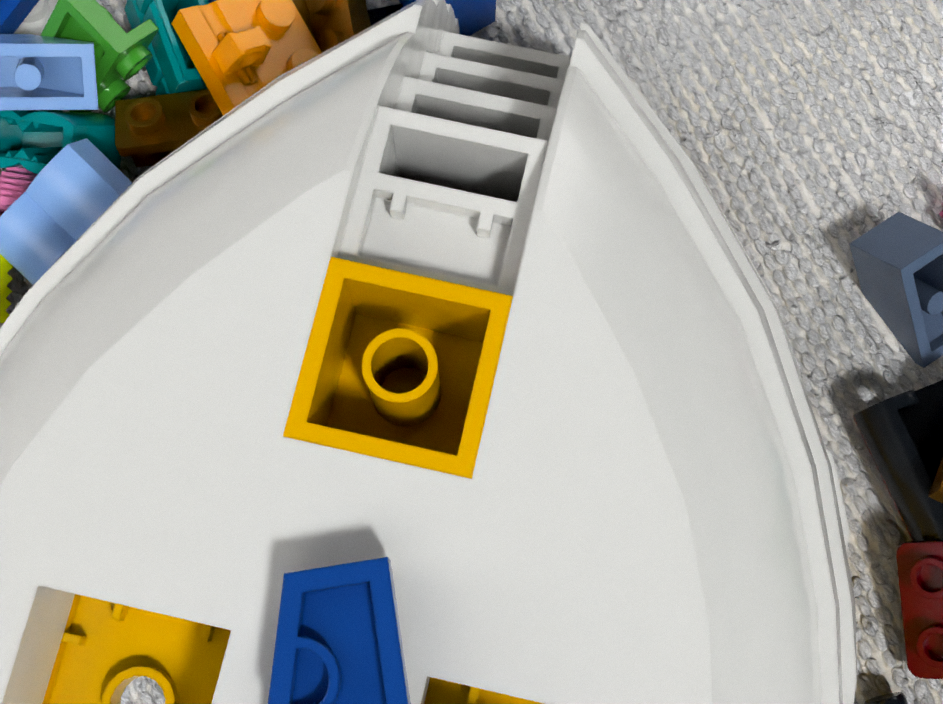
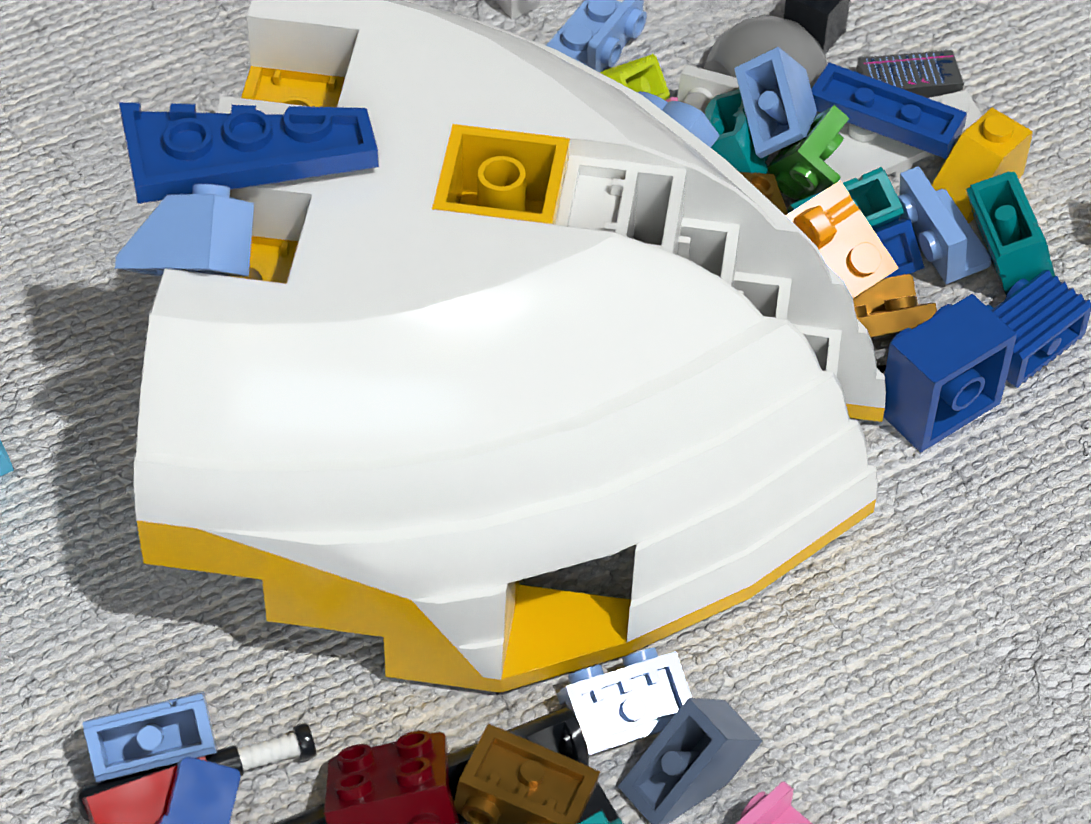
camera: 85 degrees right, 25 degrees down
(837, 346) = (627, 701): none -> bracket

